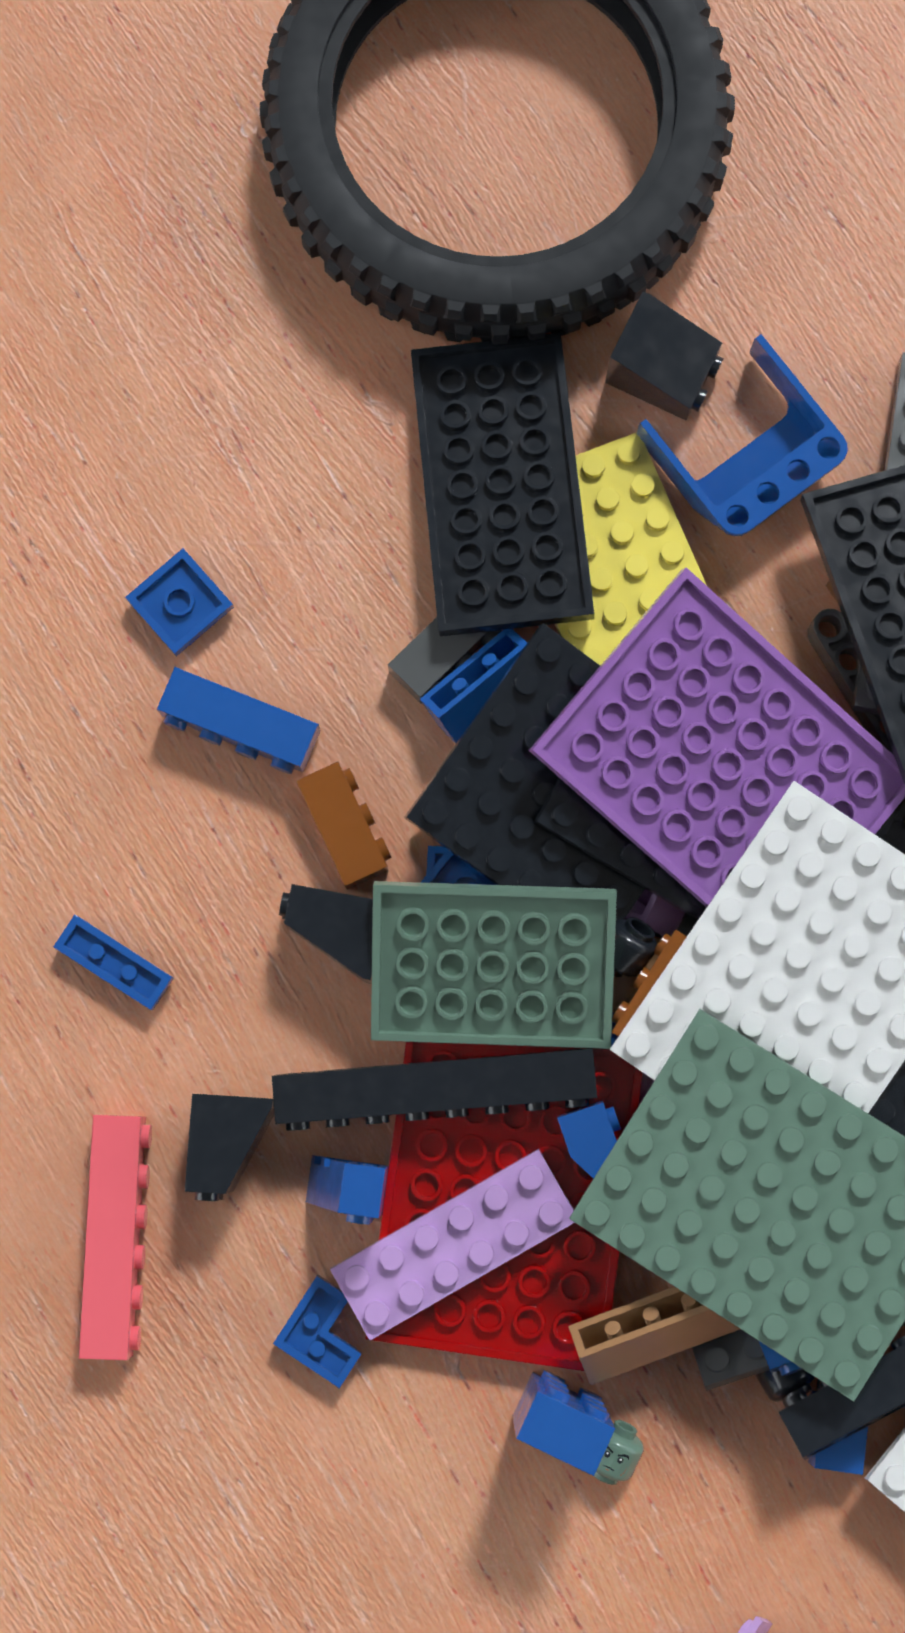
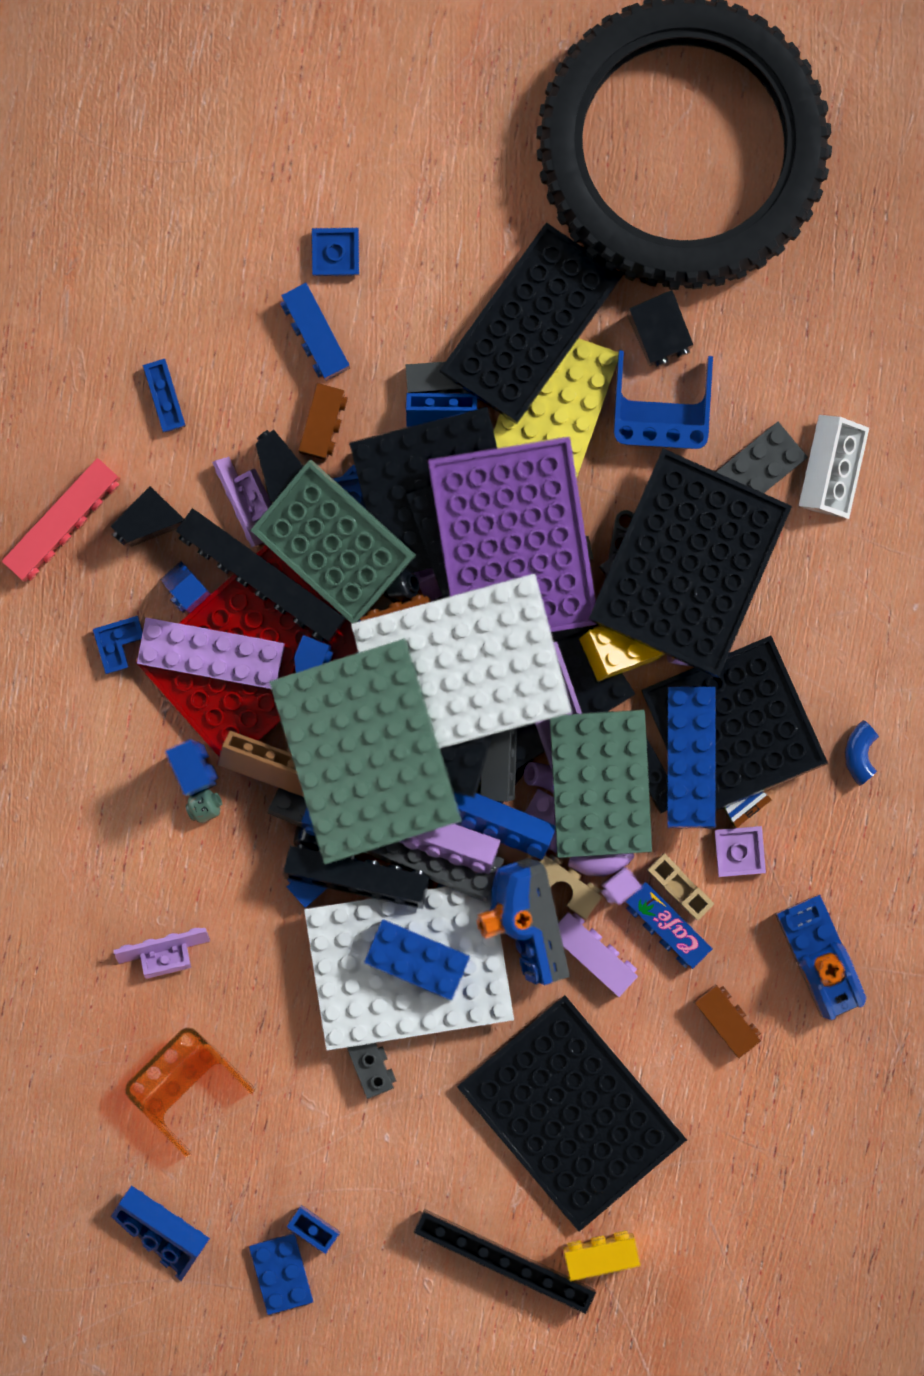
camera: 40 degrees right, 5 degrees up
(327, 1001) = (245, 494): none -> lavender bracket

